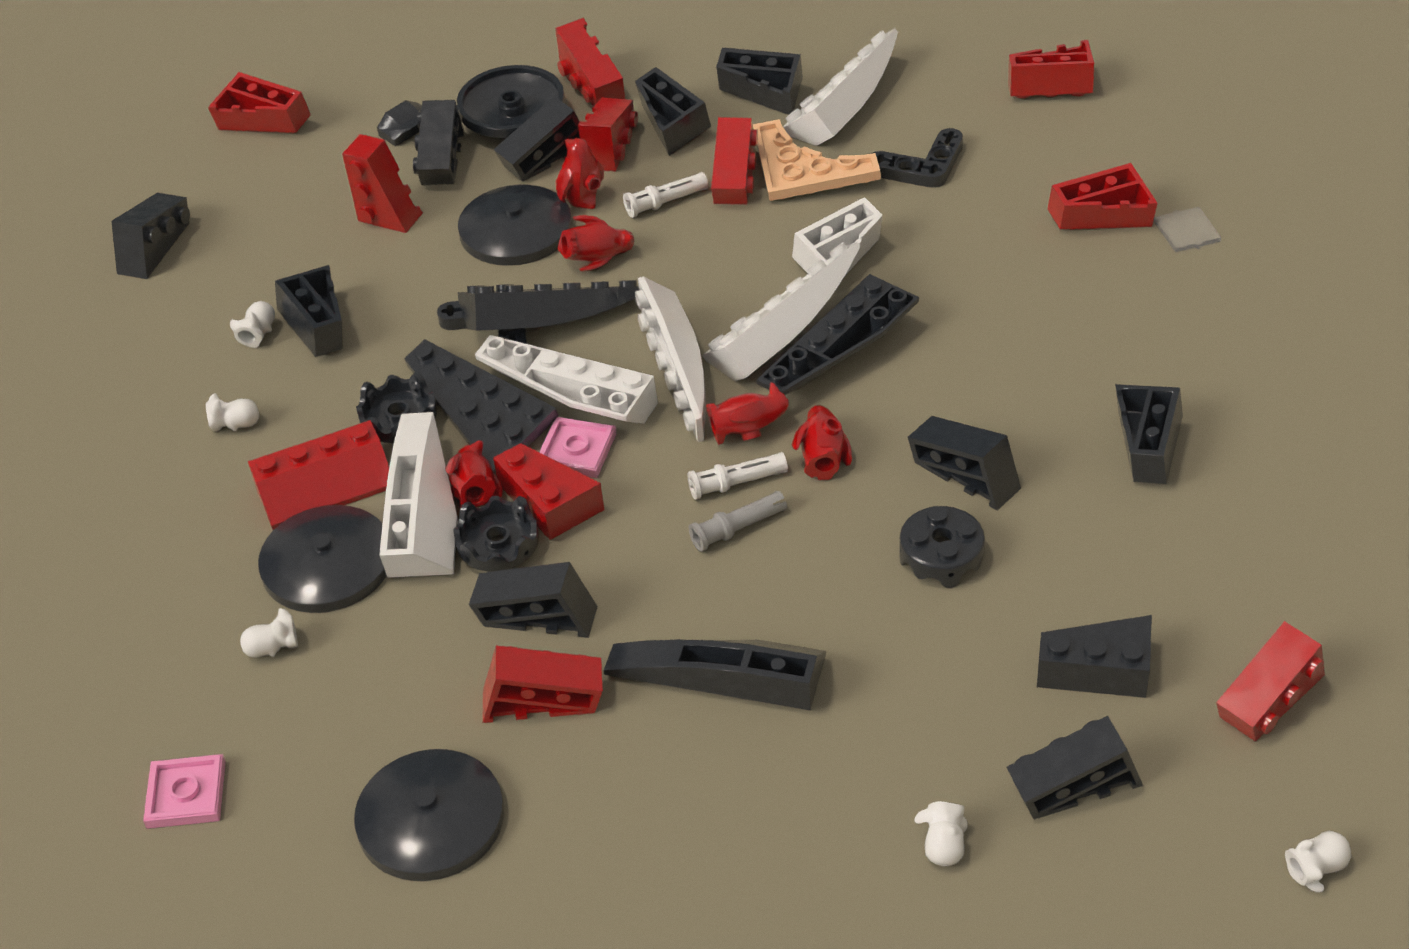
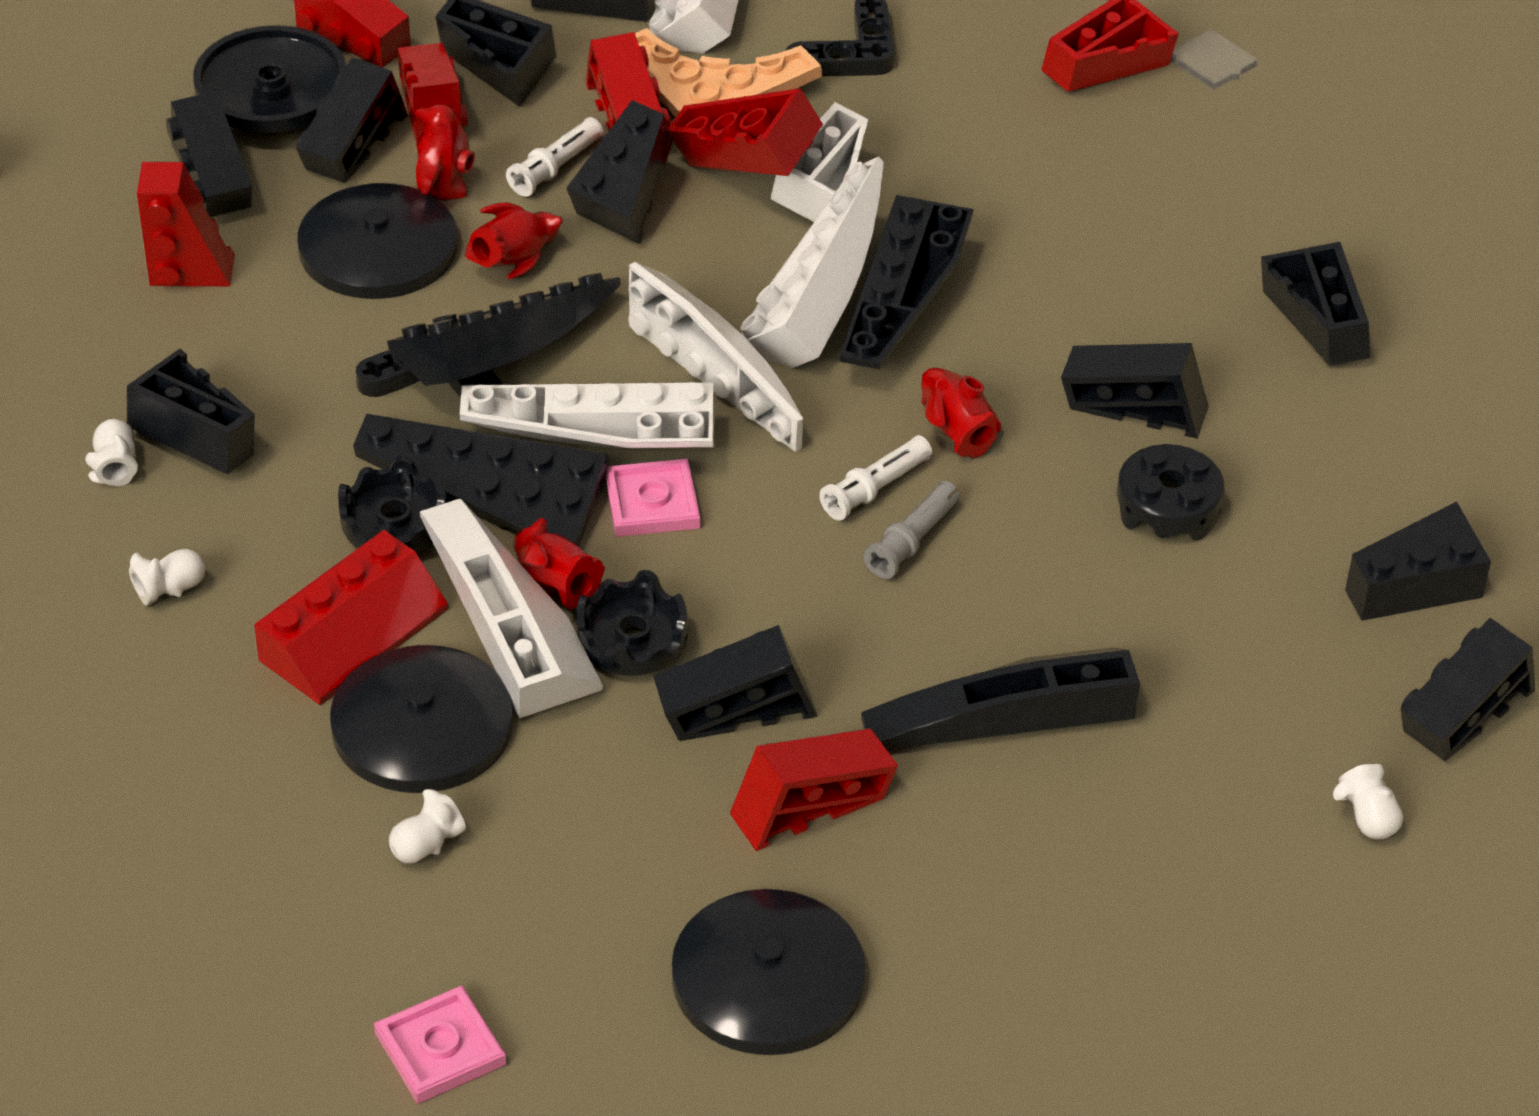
camera: 30 degrees left, 0 degrees up
(400, 122) = (128, 140): black slope -> none
(554, 491) = (683, 553): red wedge -> none
(694, 212) = (623, 171): none -> black wedge
(746, 414) = (848, 402): red animal -> none
(788, 204) = (747, 132): none -> red wedge

